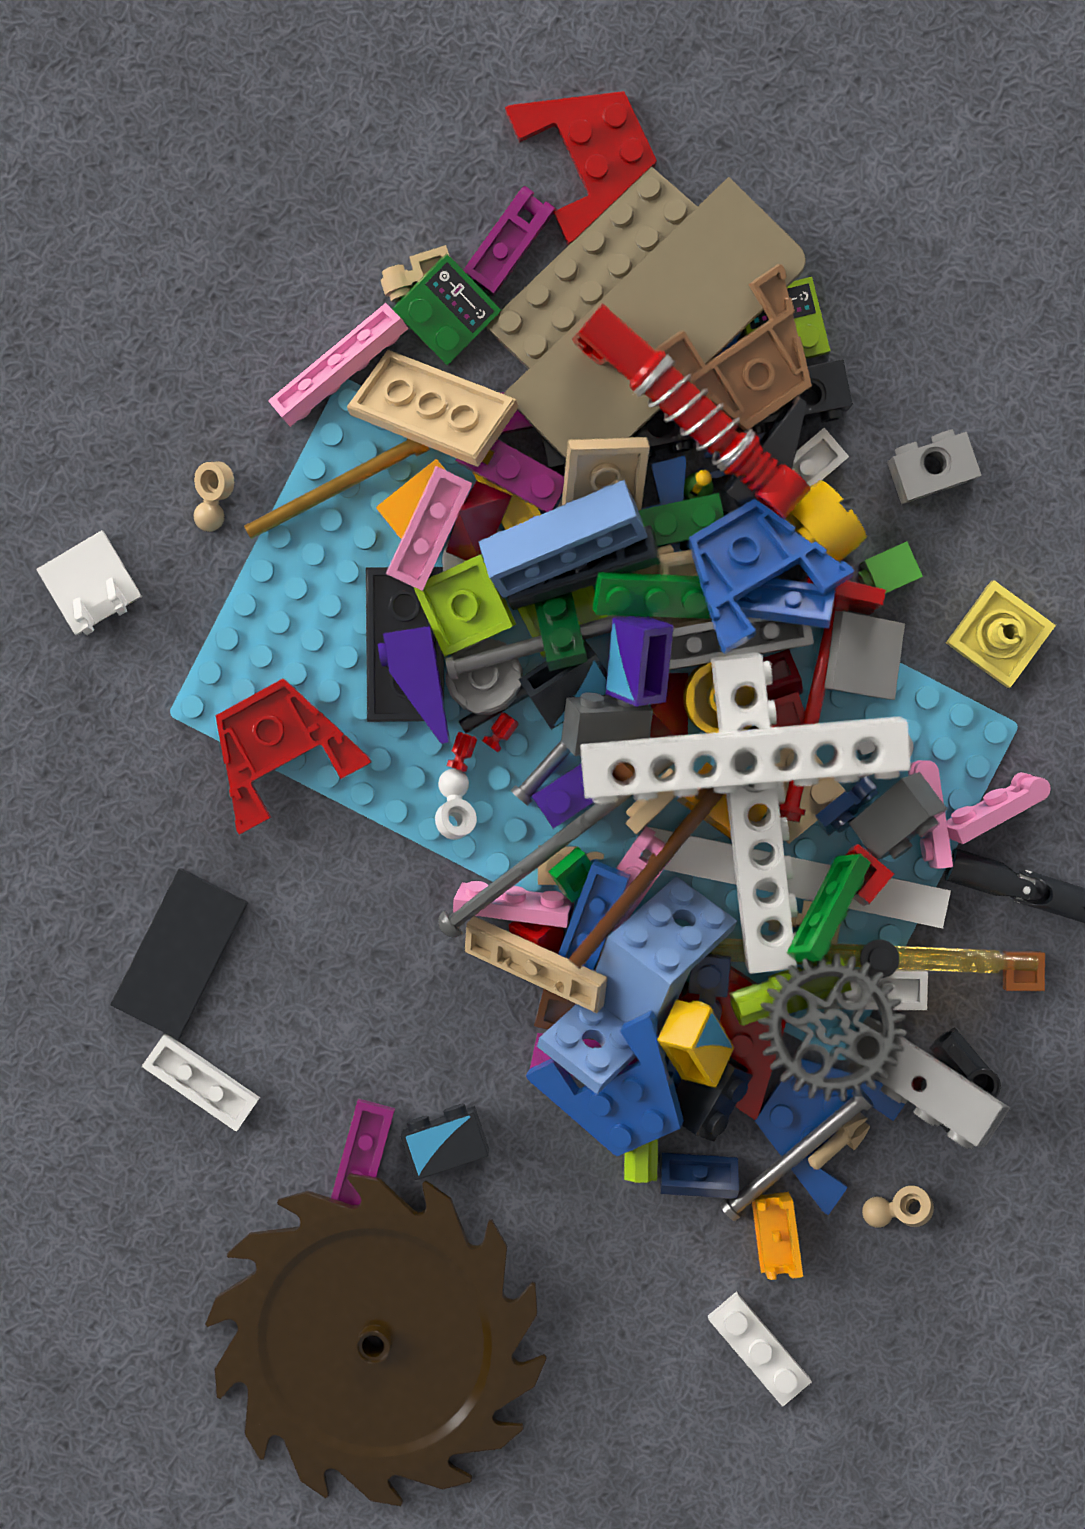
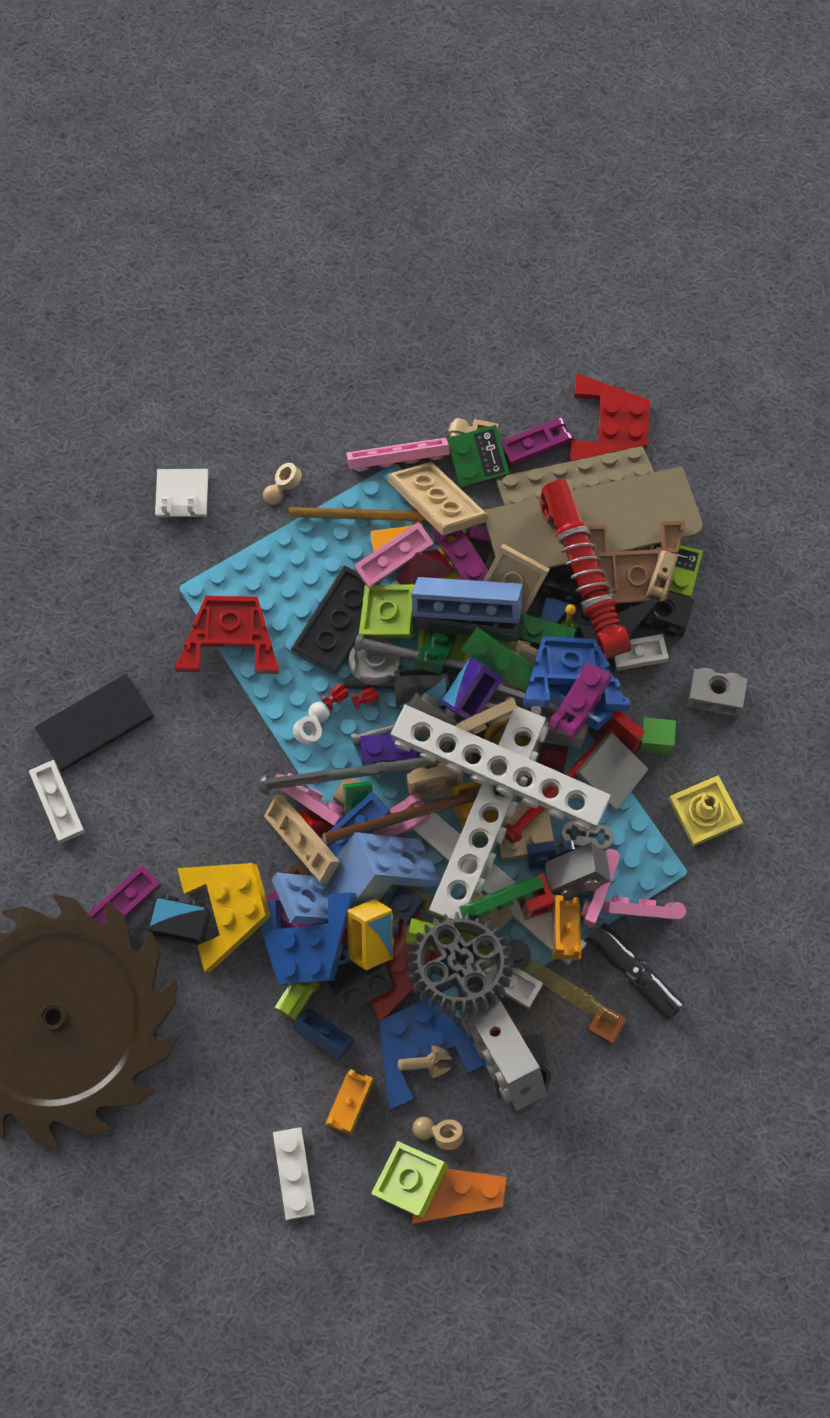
camera: 30 degrees right, 20 degrees down
(416, 671) = (338, 626): dark purple slope -> none
(501, 1084) = (236, 902): none -> yellow wing
(684, 698) = (491, 716): none -> tan plate
(791, 353) = (662, 572): none -> tan bar
(791, 604) = (580, 700): none -> magenta plate
(796, 1154) = (392, 1053): flat silver bar -> none
(826, 521) = (633, 681): yellow brick -> none
(900, 1285) = (410, 1179): none -> lime plate
(920, 893) = (566, 929): none -> light orange hinge
(956, 1263) = (464, 1194): none -> orange wing

